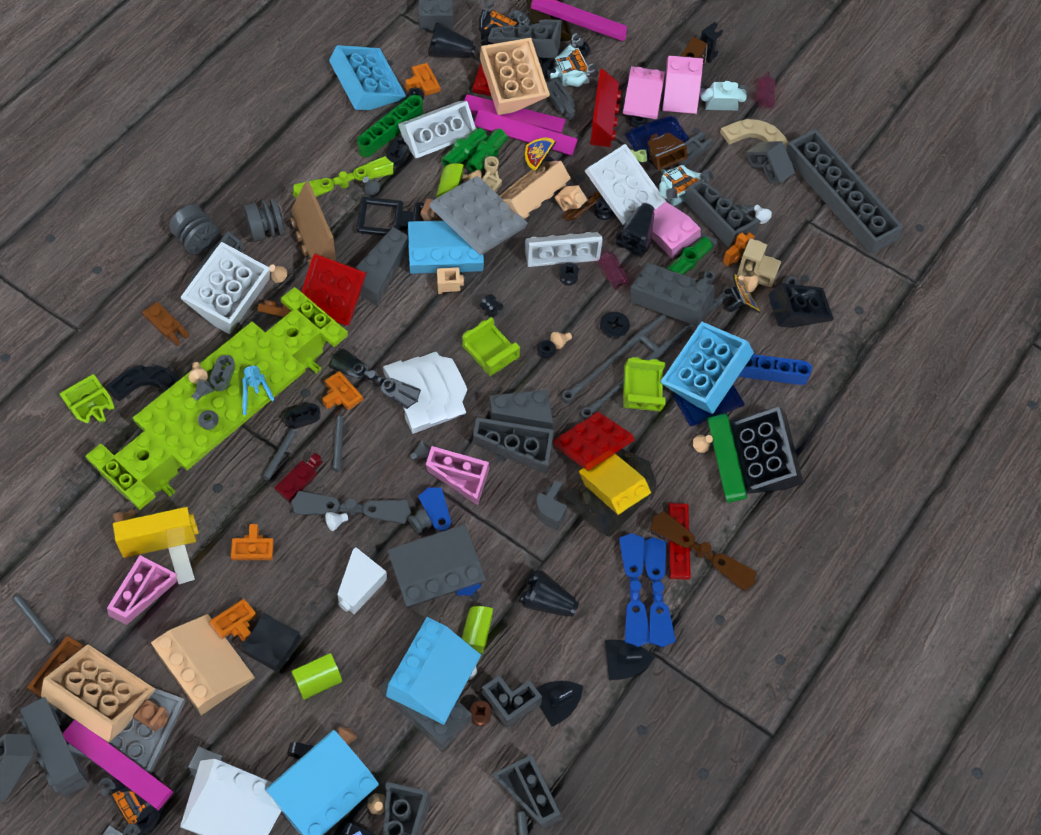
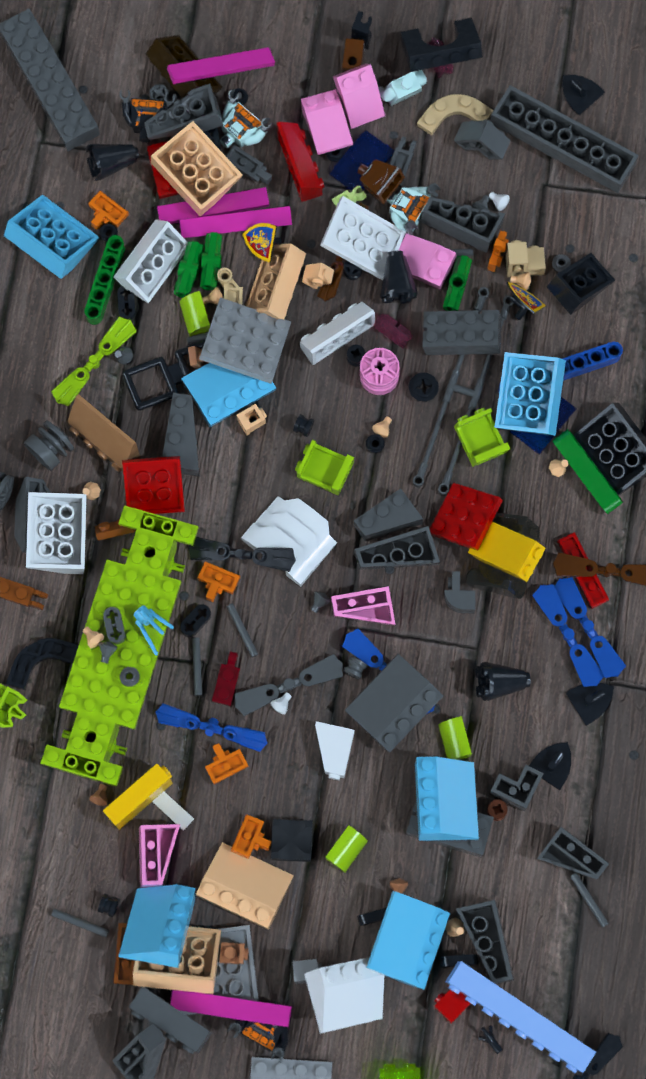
camera: 20 degrees left, 15 degrees up
(69, 615) = (108, 905): none -> black wheel
(100, 653) = (158, 924): none -> medium azure slope
(283, 530) = (246, 737): none -> blue piece
(582, 292) = (378, 381): none -> bright pink wheel
(789, 86) = (425, 56): none -> black arch
(876, 167) = (580, 92): none -> black shield

